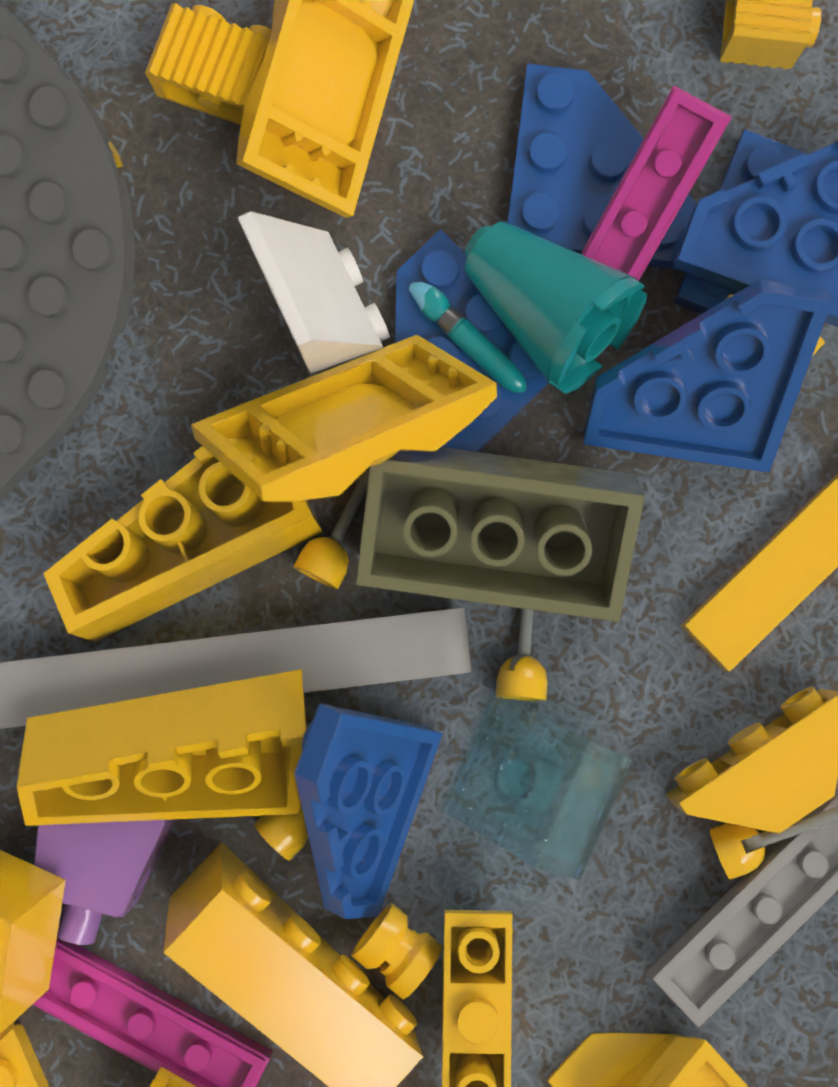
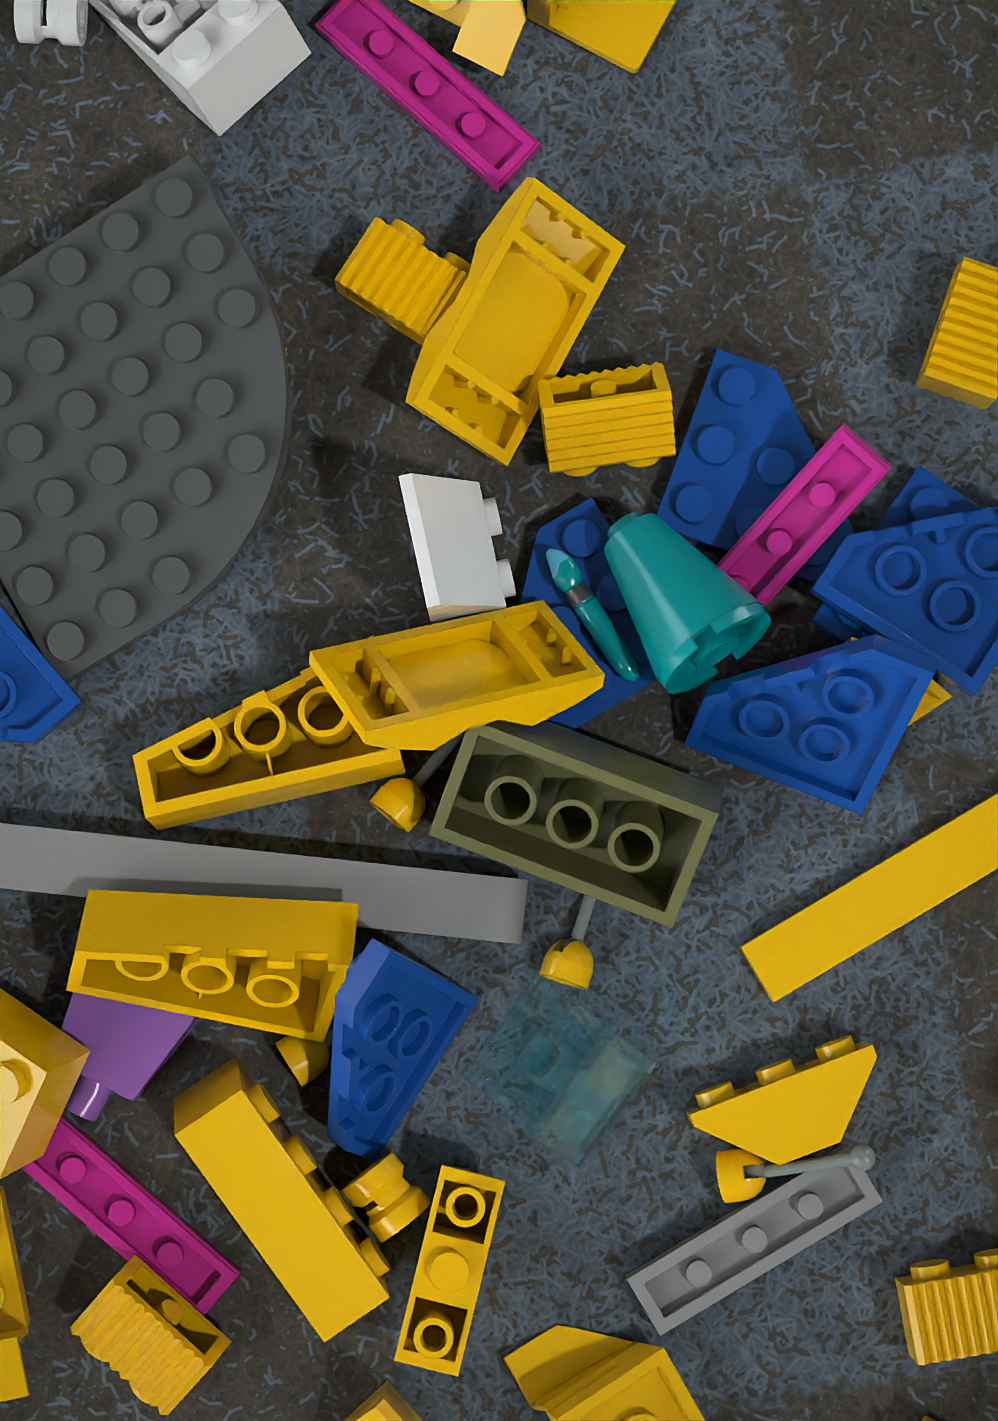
camera: 10 degrees right, 0 degrees up
(439, 147) = (607, 419): none -> yellow brick

